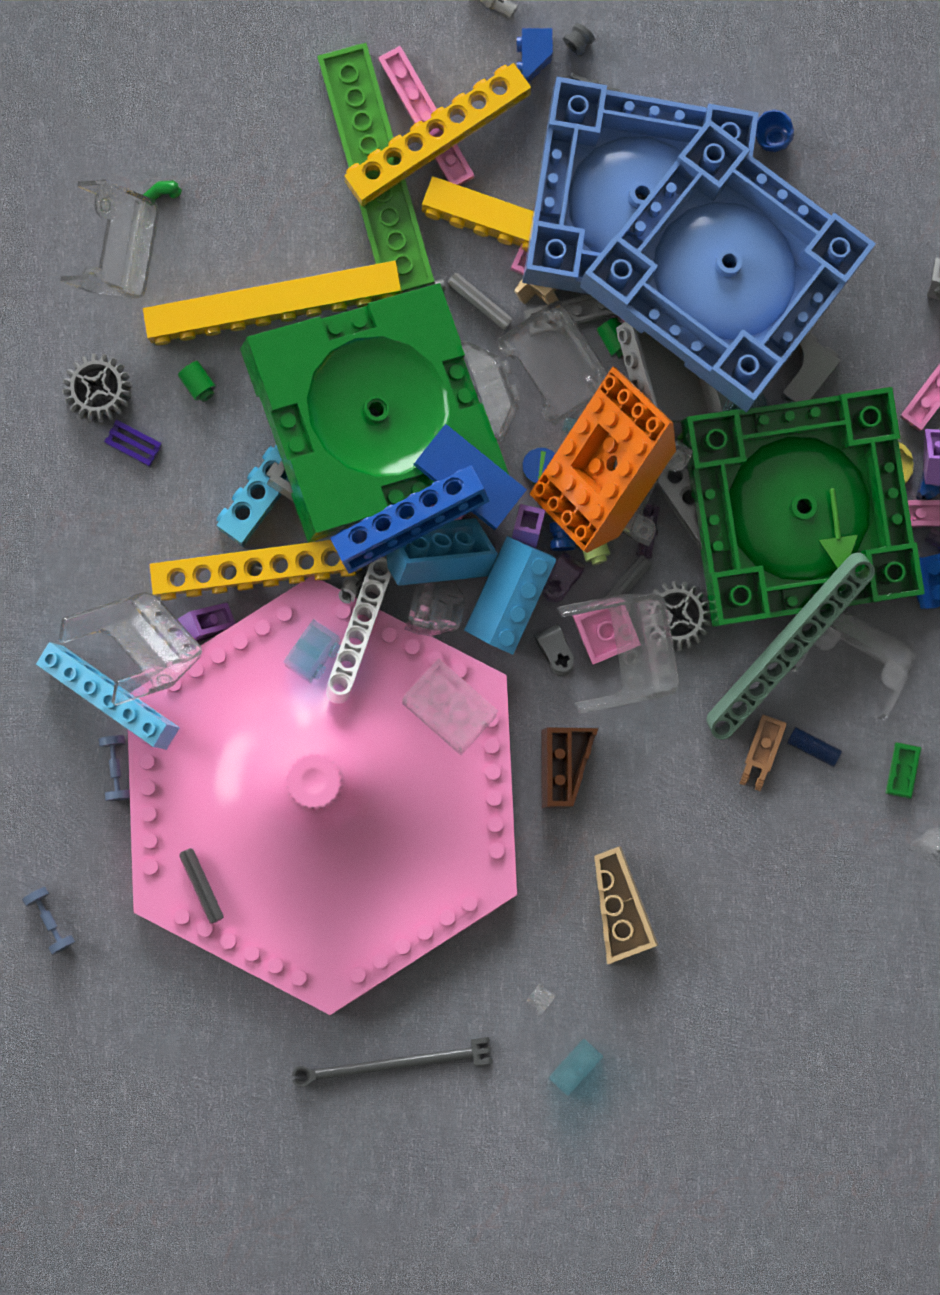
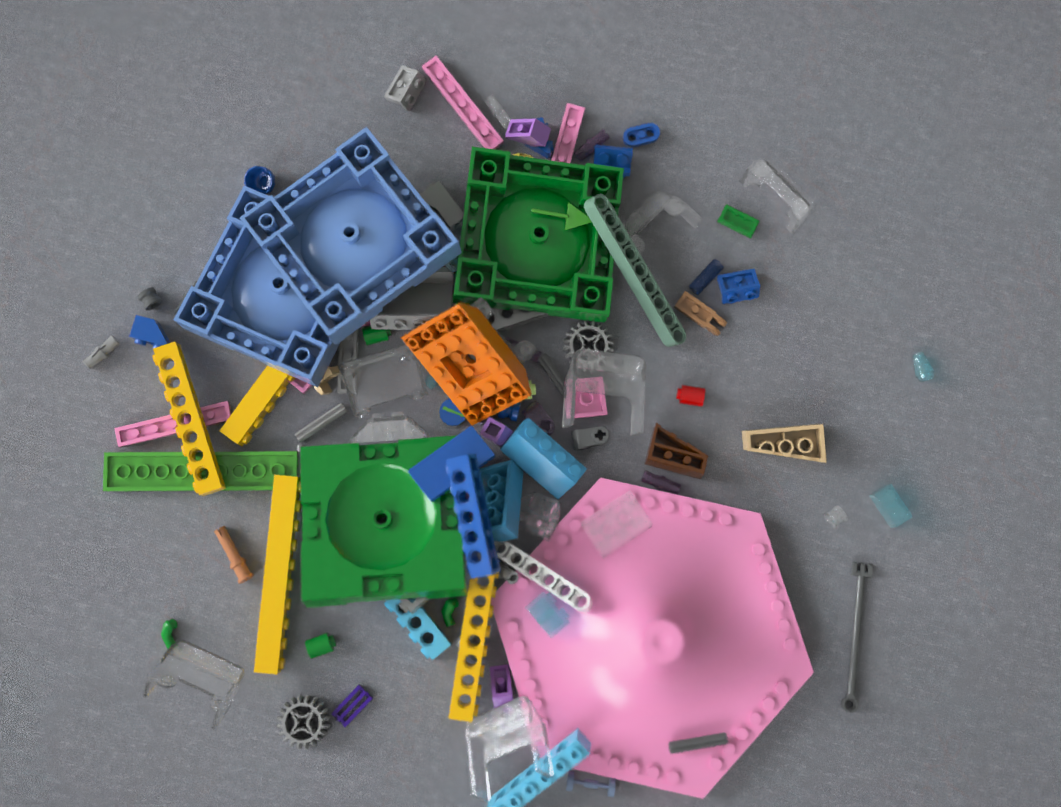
camera: 75 degrees left, 0 degrees up
(272, 249) = (237, 563): none -> nougat pin
(283, 529) = (447, 610): none -> green arm
(522, 758) = (661, 482): none -> clear purple pin
(648, 767) = (691, 395): none -> red brick
(772, 1067) = (922, 367): none -> clear light blue cone
(814, 793) = (739, 286): none -> blue bracket

